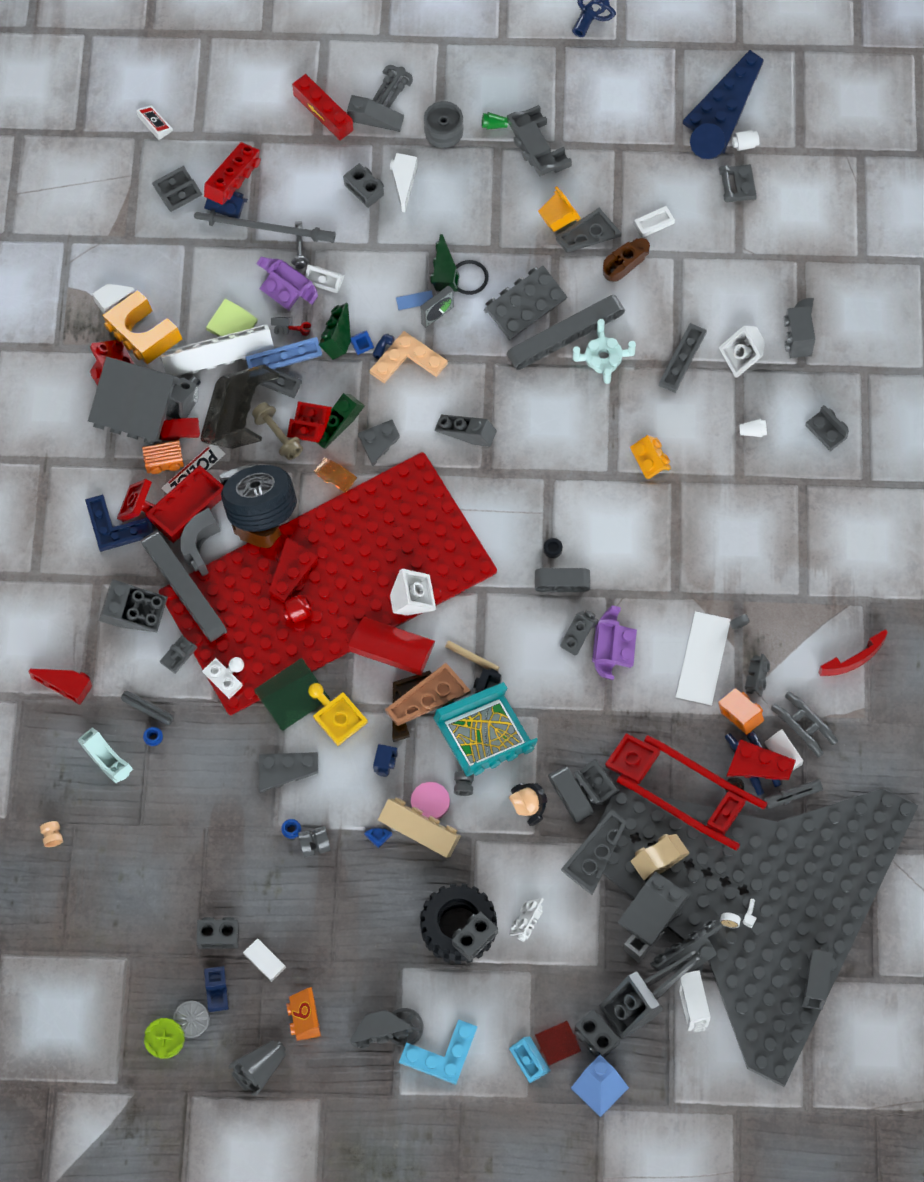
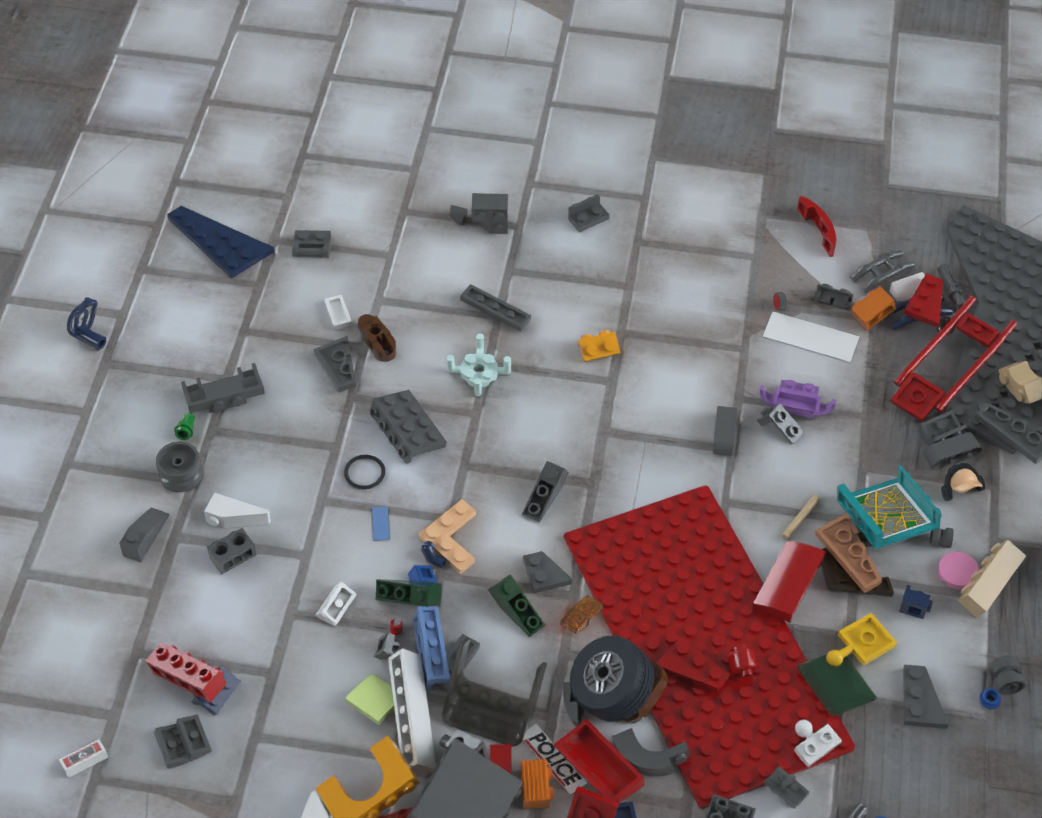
camera: 85 degrees left, 15 degrees down
(183, 586) = (703, 773): dark grey beam -> none
(263, 414) = (498, 674): dark tan piece -> none
(286, 283) = (338, 637): medium lavender plate -> none
(299, 261) = (311, 621): flat silver piece -> none
(309, 422) = (516, 630): red slope -> none
(315, 234) = (283, 600): dark grey bar -> none
(322, 107) = (120, 578): red brick -> none
(378, 836) = (996, 620): blue tile -> none
(404, 81) = (97, 503): dark grey piece -> none
(412, 593) = (737, 553): white slope -> none
(437, 306) = (401, 494): tile -> none
(445, 270) = (354, 485): dark green slope -> none
(487, 675) = (830, 506): black bracket -> none
(553, 548) = (686, 436): black tile -> none
(558, 211) = (312, 377): light orange container -> none
(565, 332) = (449, 396): dark grey beam -> none
(708, 141) = (262, 256): dark blue tile -> none
(743, 349) = (499, 260): white slope -> none
(745, 140) = (268, 229): white brick -> none
(754, 428) = (580, 264): white cone -> none

